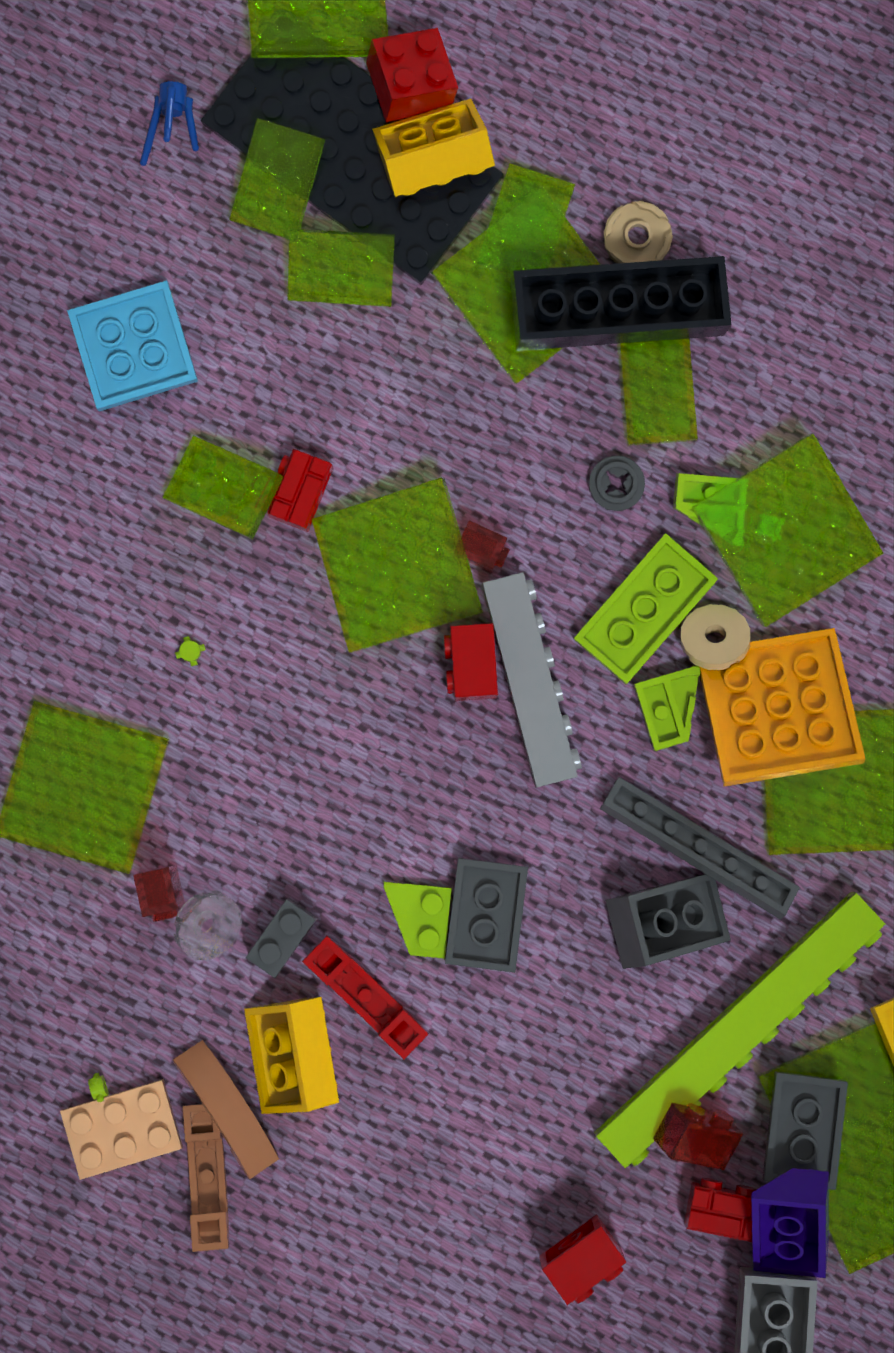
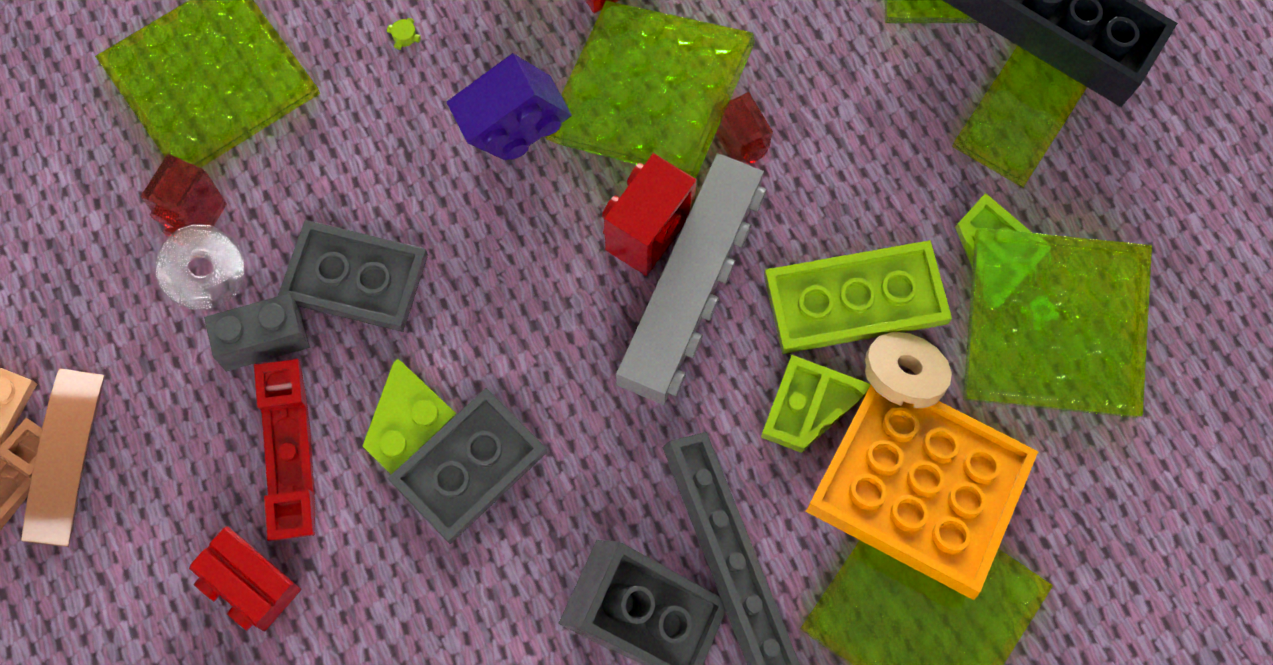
camera: 35 degrees right, 15 degrees down
(291, 1056) = (169, 452): yellow slope -> none
(307, 850) = (354, 275): none -> dark grey plate
(324, 662) = (509, 108): none -> dark purple brick
(409, 1093) = (244, 580): none -> red brick
(618, 467) = (928, 156): dark grey gear -> none

